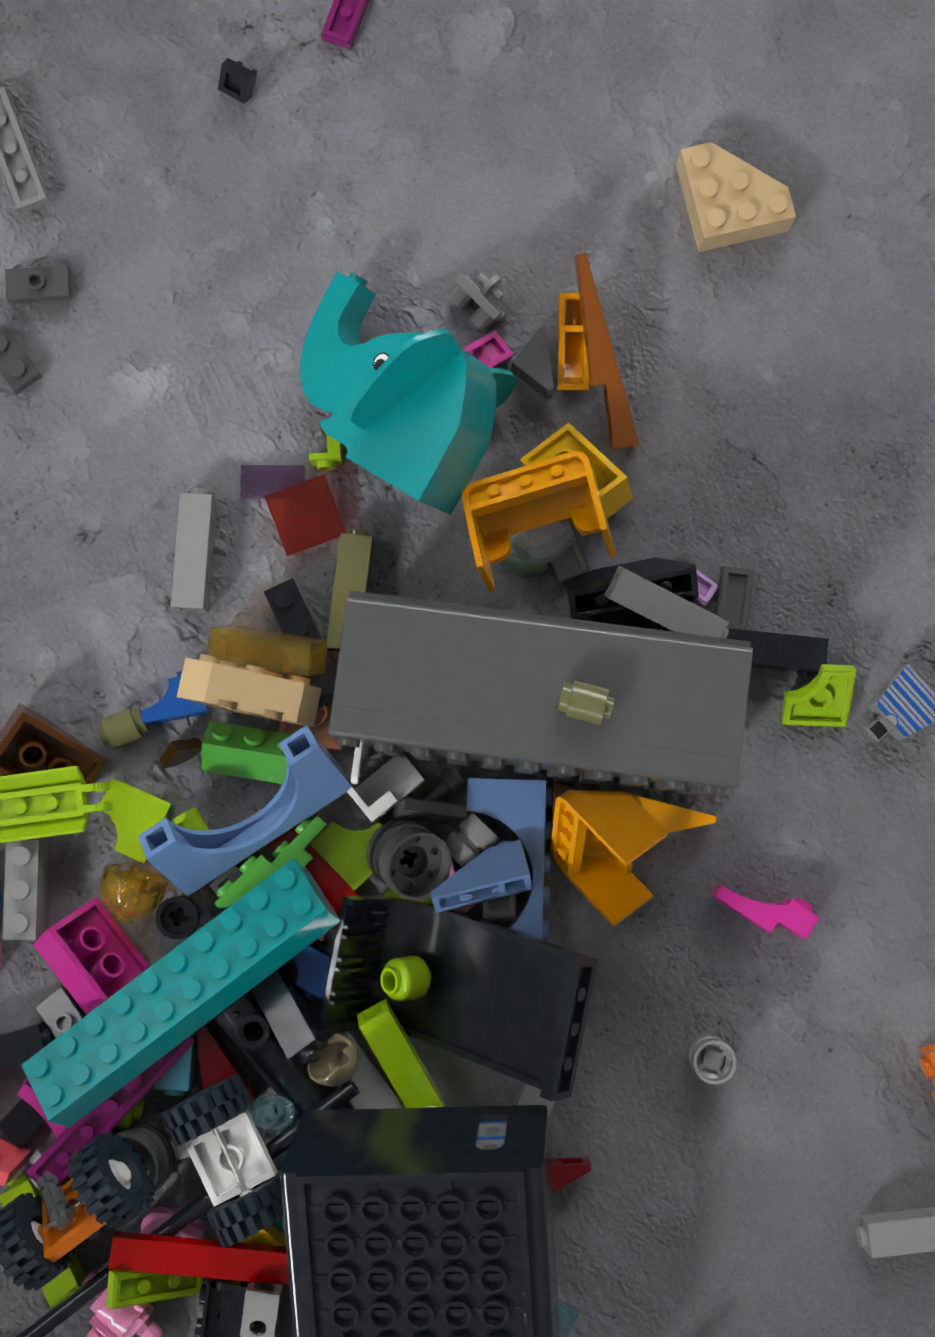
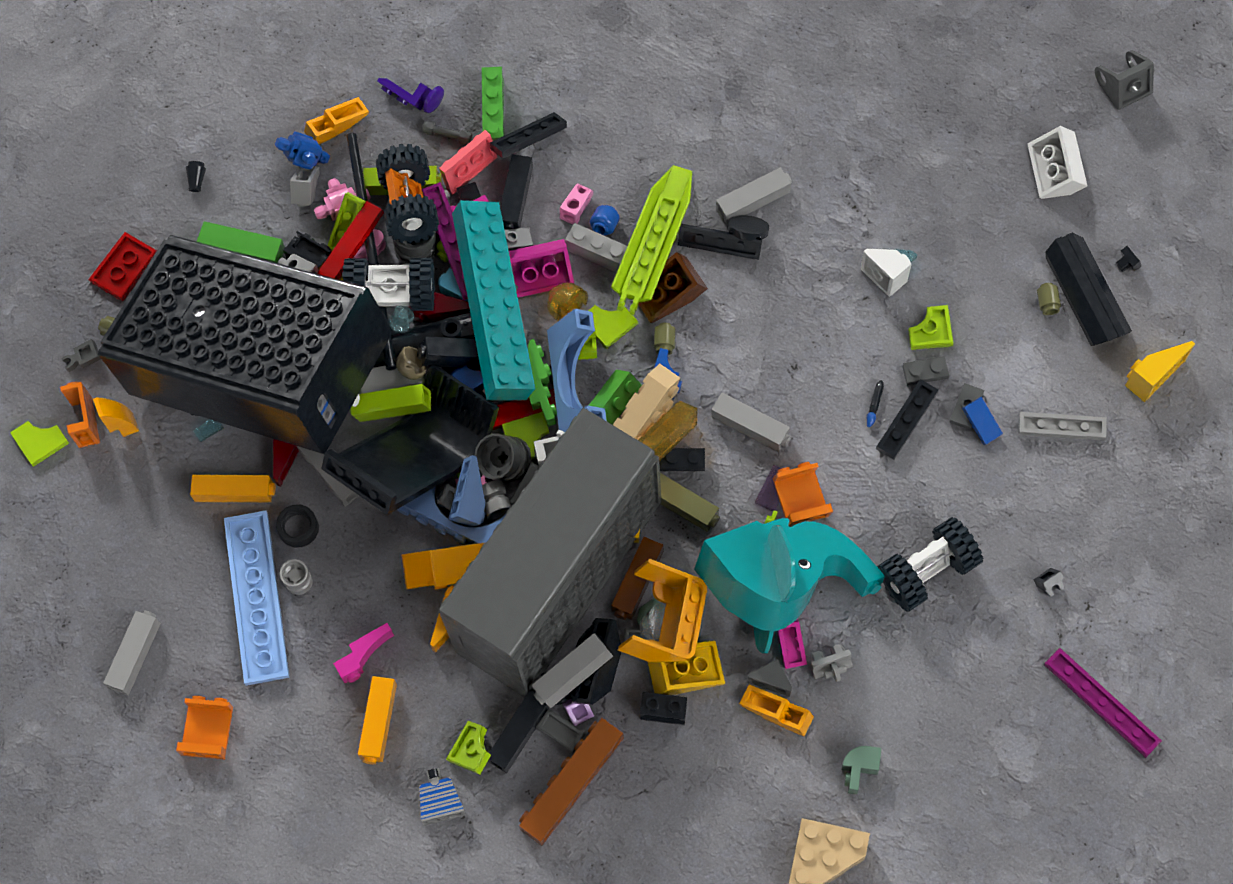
camera: 120 degrees right, 15 degrees down
(51, 251) = (982, 420): none -> blue tile
(54, 1200) = (417, 187): dark grey axle -> none
(93, 350) = (907, 419): none -> black plate
(110, 400) = (871, 416): none -> black piece
(168, 924) = (538, 315): black piece -> none
(180, 752) = (634, 363): dark brown tile -> none
(249, 207) = (951, 547): none -> black plate
(269, 437) = (801, 494): none -> orange panel
(305, 514) = (742, 496): clear red tile -> none
(405, 978) = (435, 425): lime head -> none
(511, 594) = (632, 586): none -> reddish brown brick
(585, 702) = (527, 545): olive brick -> none
(590, 211) = (860, 760): none -> sand green brick
(602, 361) = (750, 713): dark orange slope -> none
(629, 1224) = (232, 488): none -> light orange brick
(645, 478) = (663, 708): none -> black hinge
(661, 1096) = (286, 514): none -> black tyre
(761, 1101) = (256, 598): none -> light blue plate
(795, 550) = (571, 781): none -> dark orange brick
(844, 842) = (377, 720): none -> light orange brick

